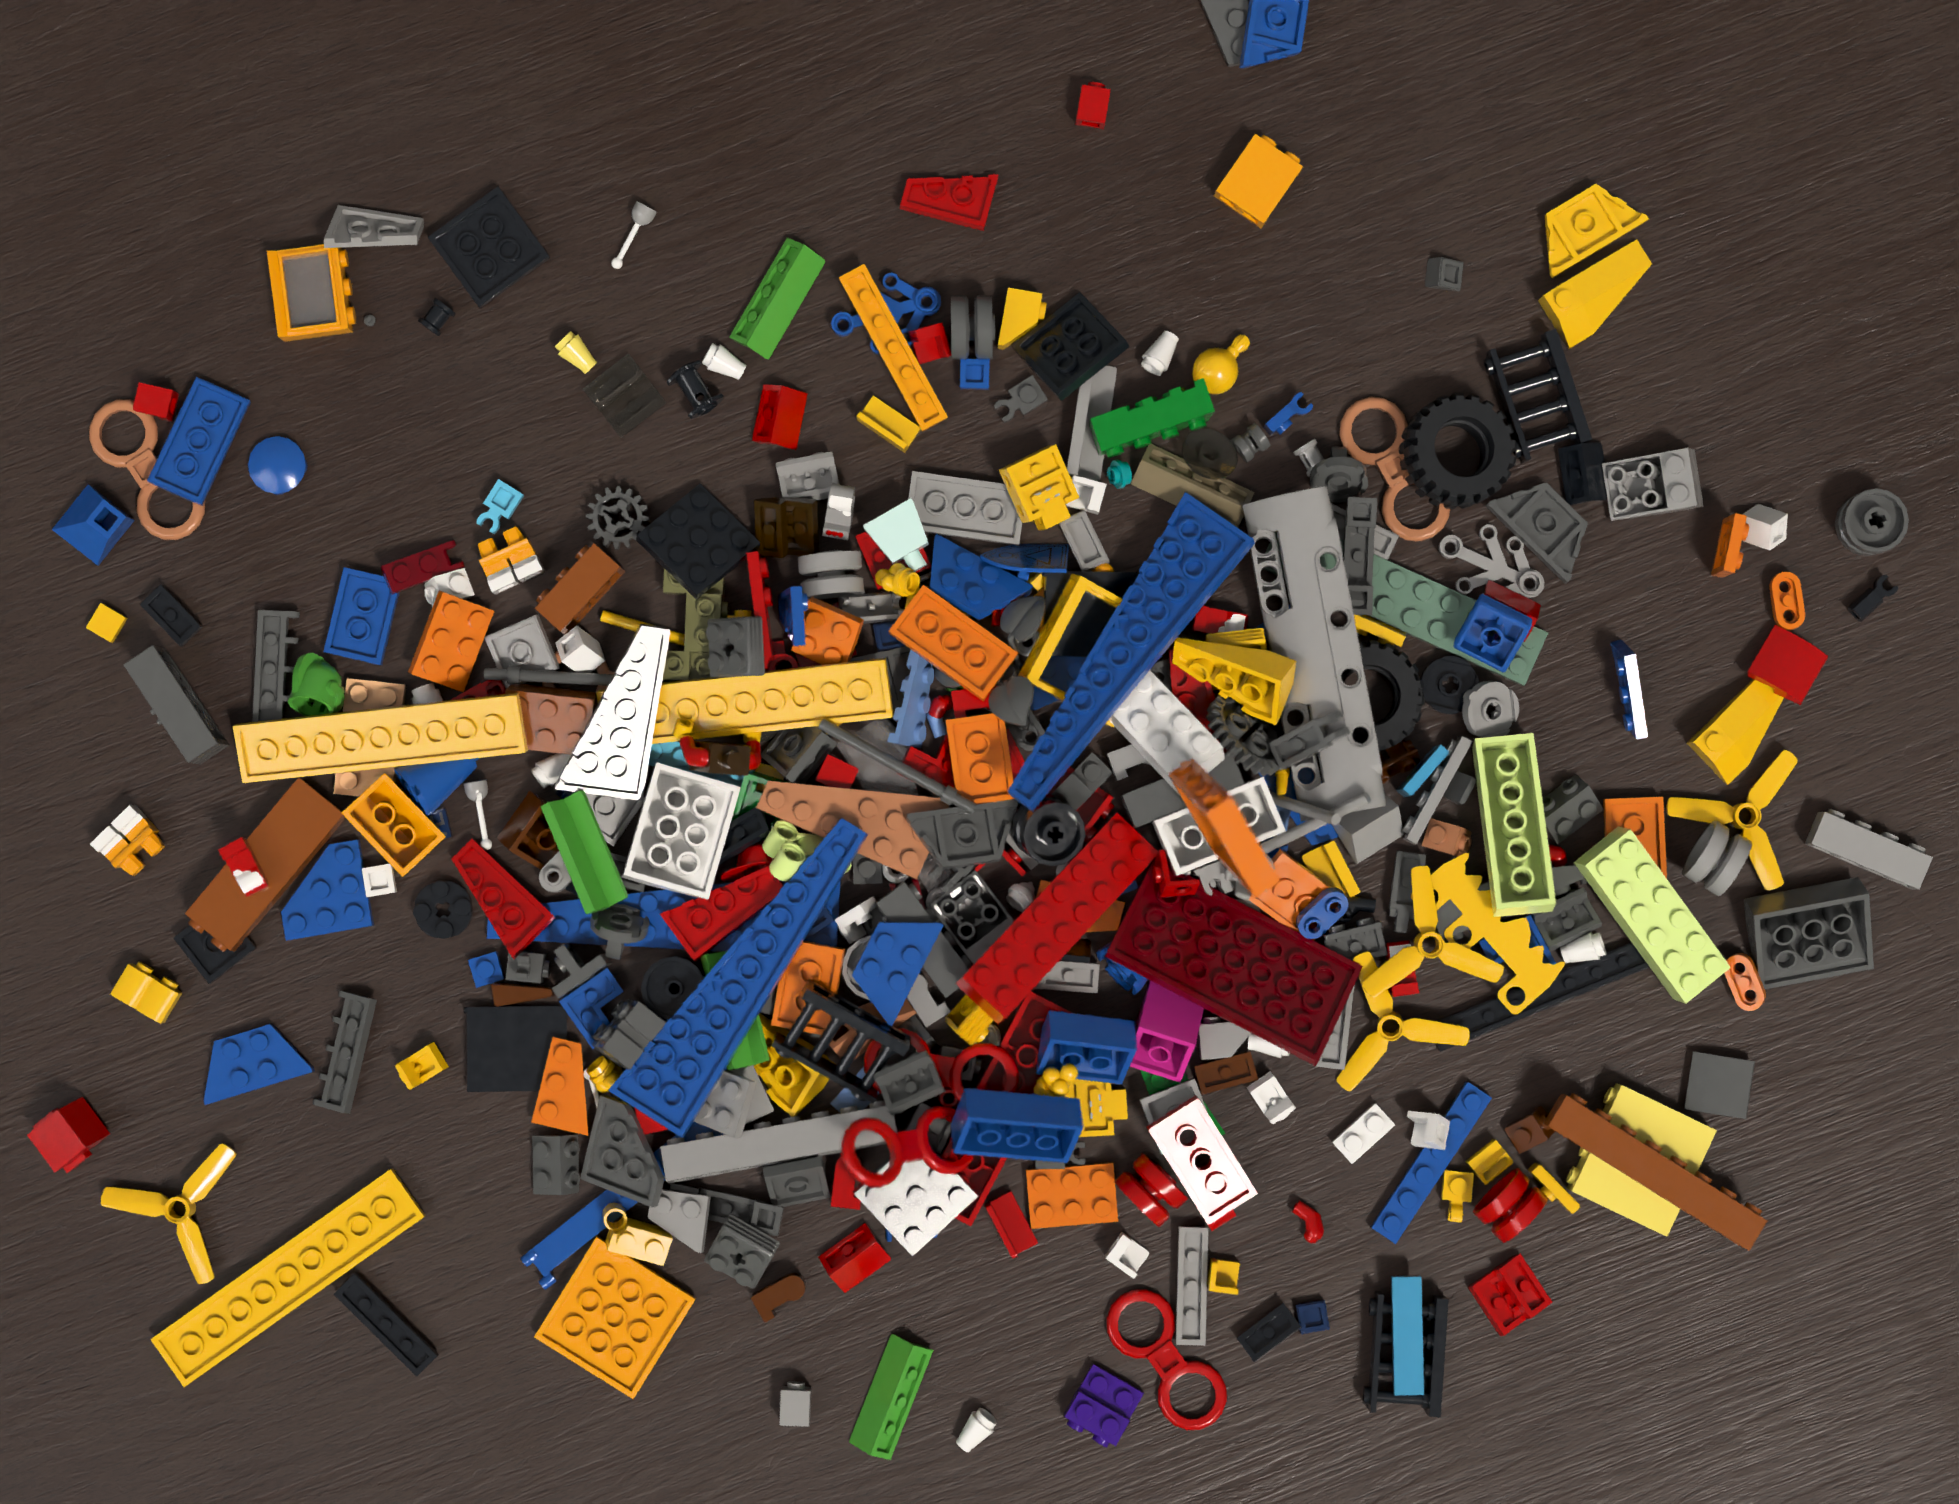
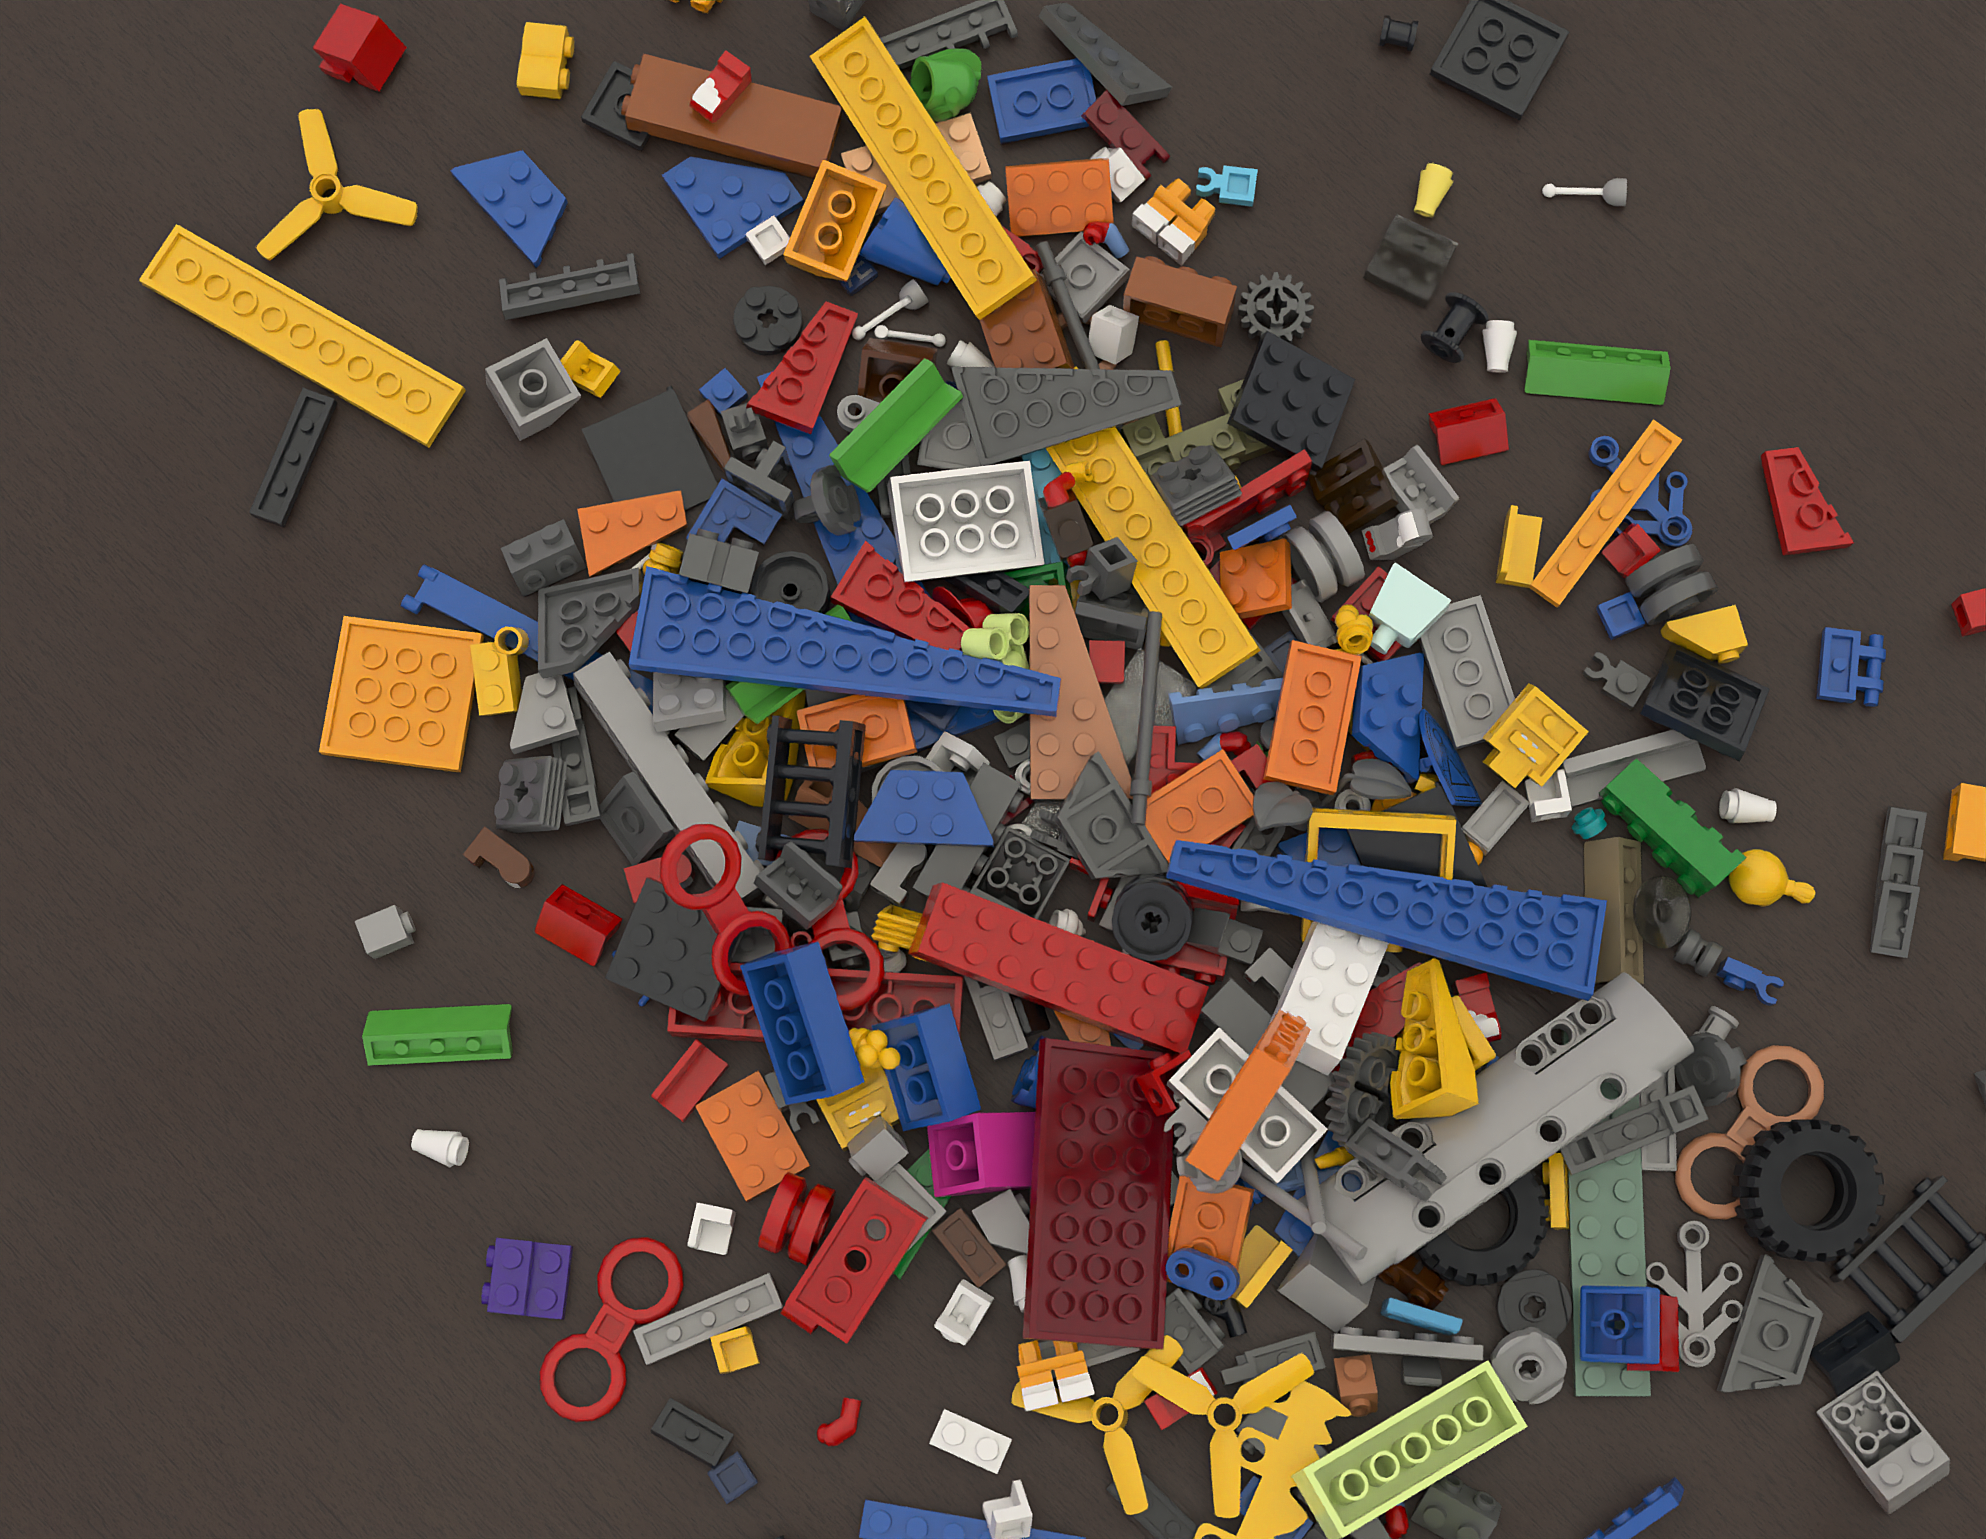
camera: 75 degrees right, 10 degrees down
(356, 552) = (1108, 61): none -> dark grey wing
(418, 1116) = (531, 388): none -> light grey slope
(494, 826) = (882, 333): none -> white hinge
(497, 618) = (1105, 233): none -> arm
(770, 744) = (1106, 570): none -> dark grey brick
(1084, 230) = (1839, 666): none -> blue plate
(1127, 1109) = (876, 1149): none -> light grey brick
(1264, 271) = (1897, 882): none -> dark grey slope
(1343, 1066) = (1037, 1379): none -> hips

